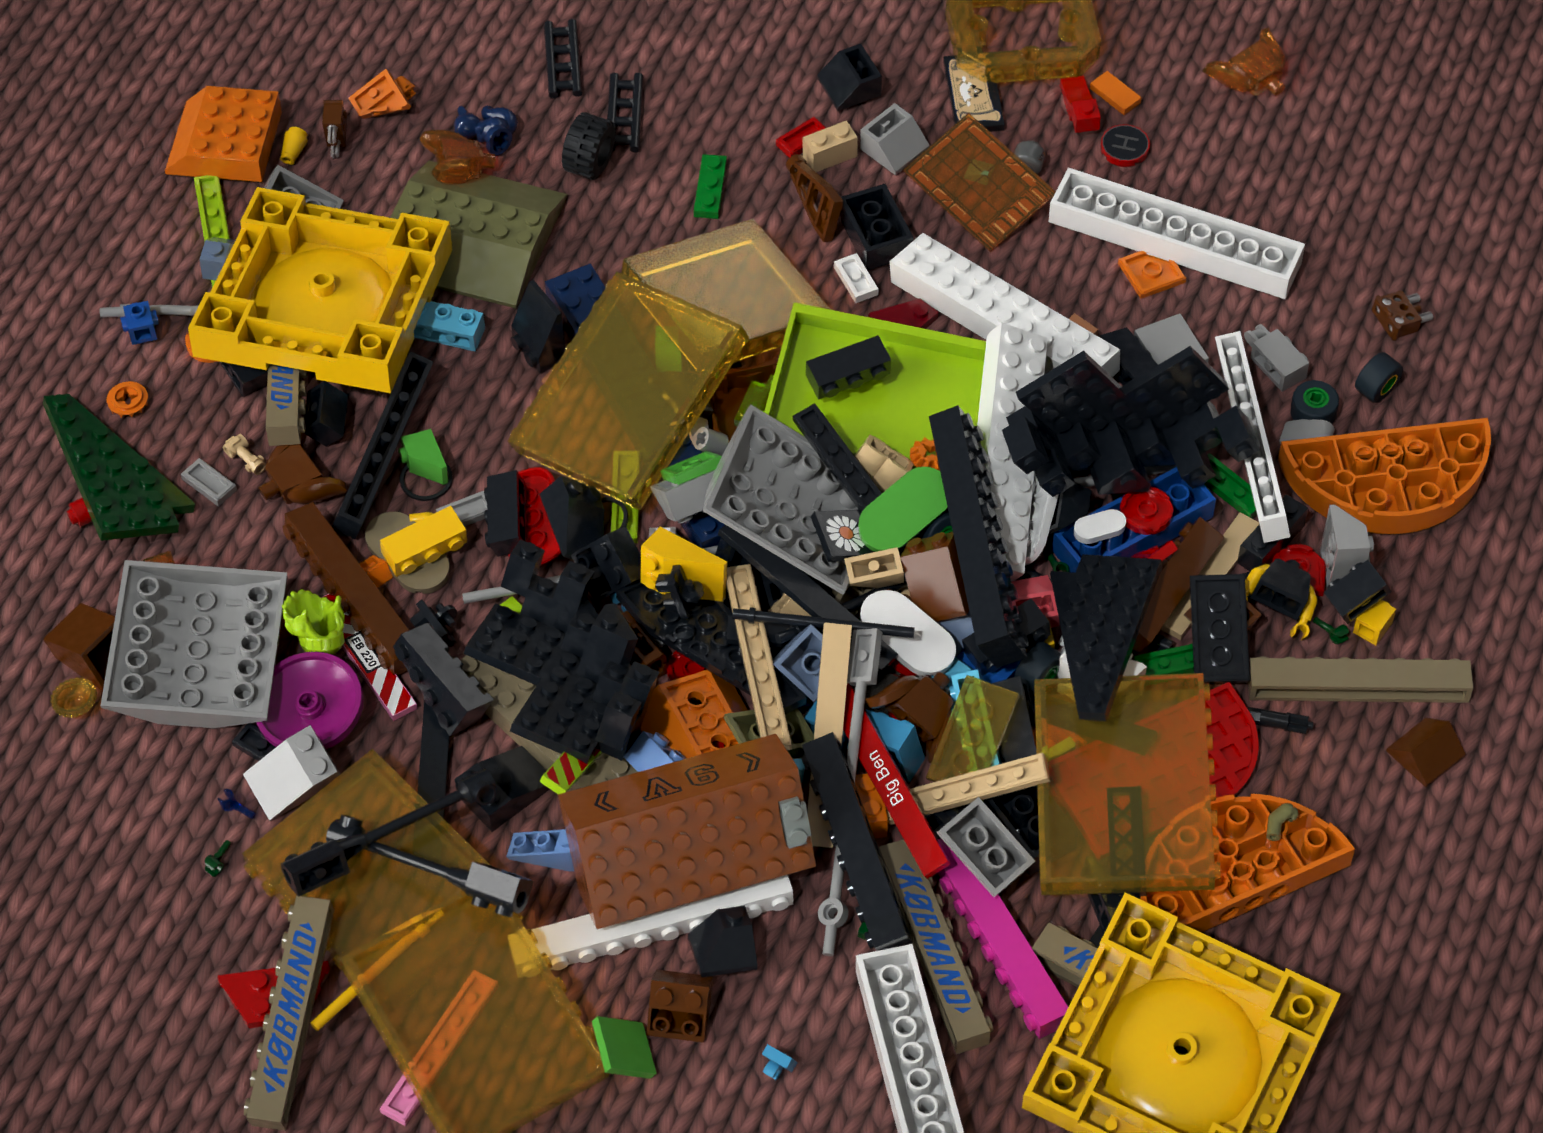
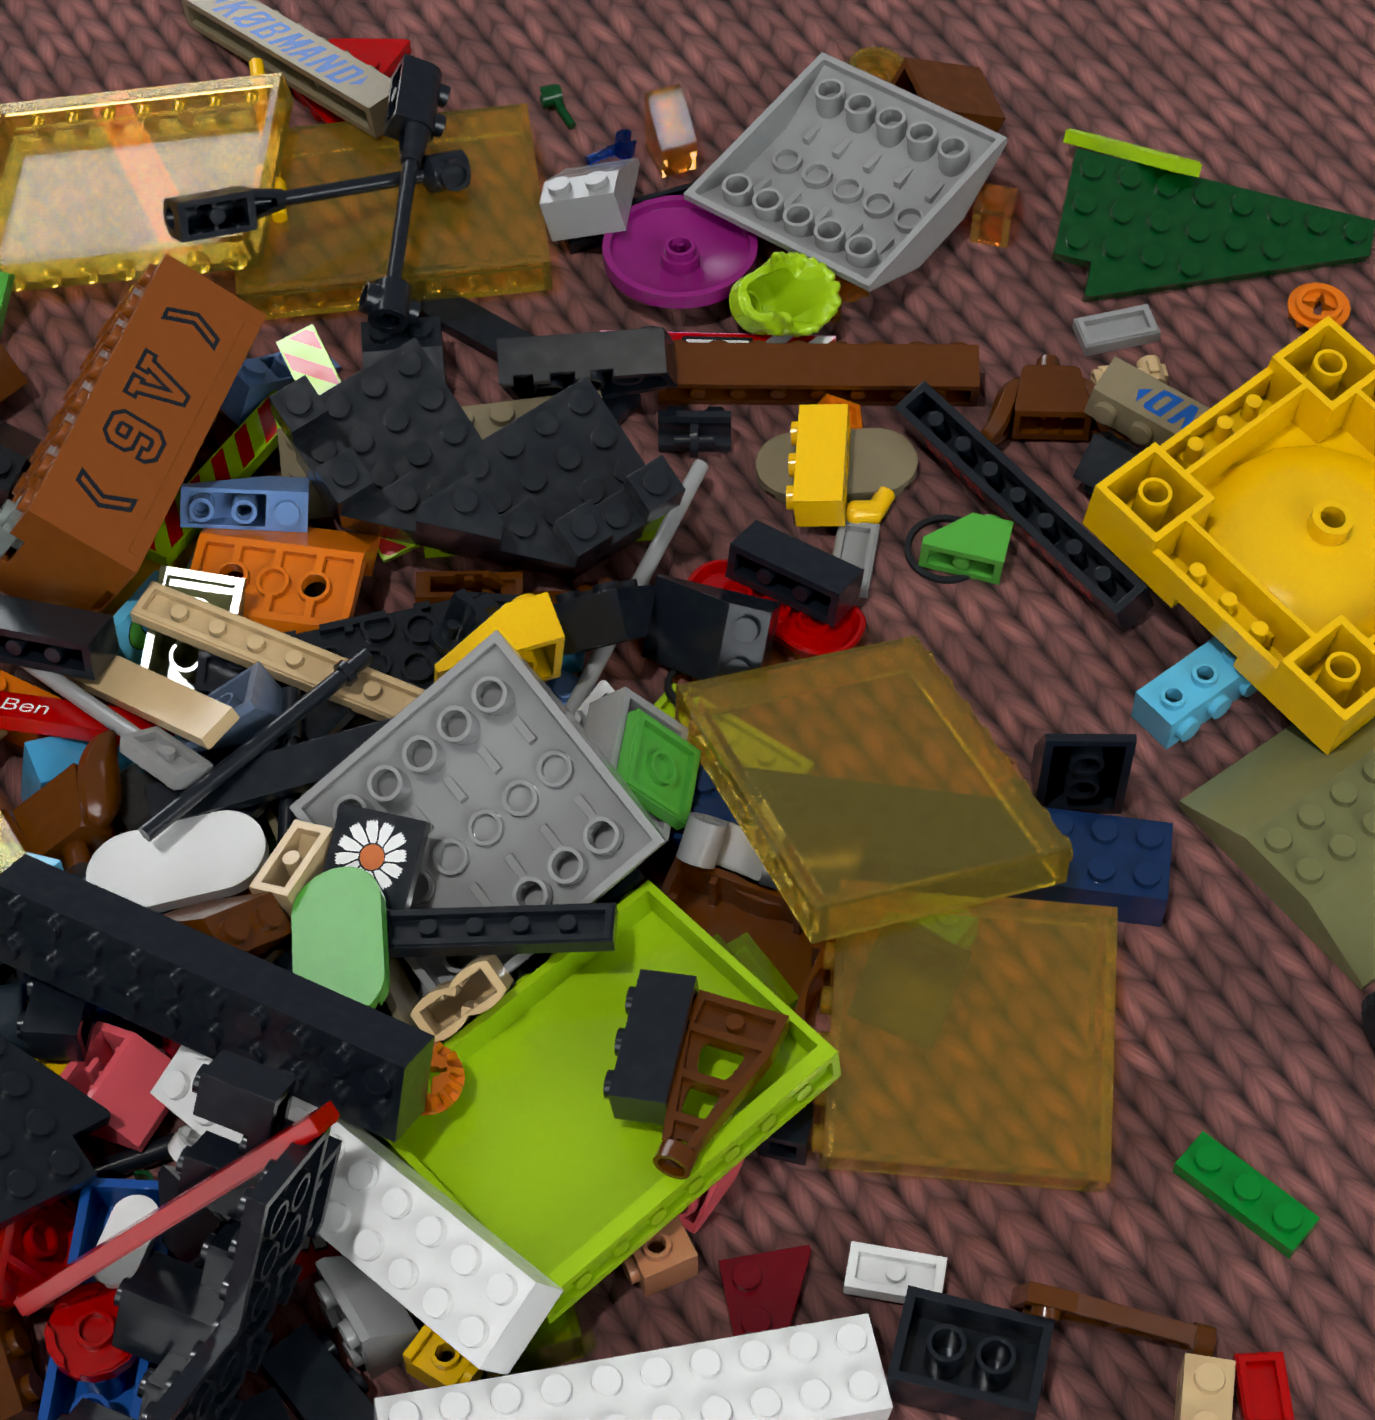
camera: 125 degrees right, 0 degrees up
(75, 520) = (1133, 152): none -> lime tile
(212, 766) = (669, 131): none -> clear orange slope
(814, 341) = (729, 1027): none -> reddish brown plate
(1087, 463) = (176, 1210): none -> red tile

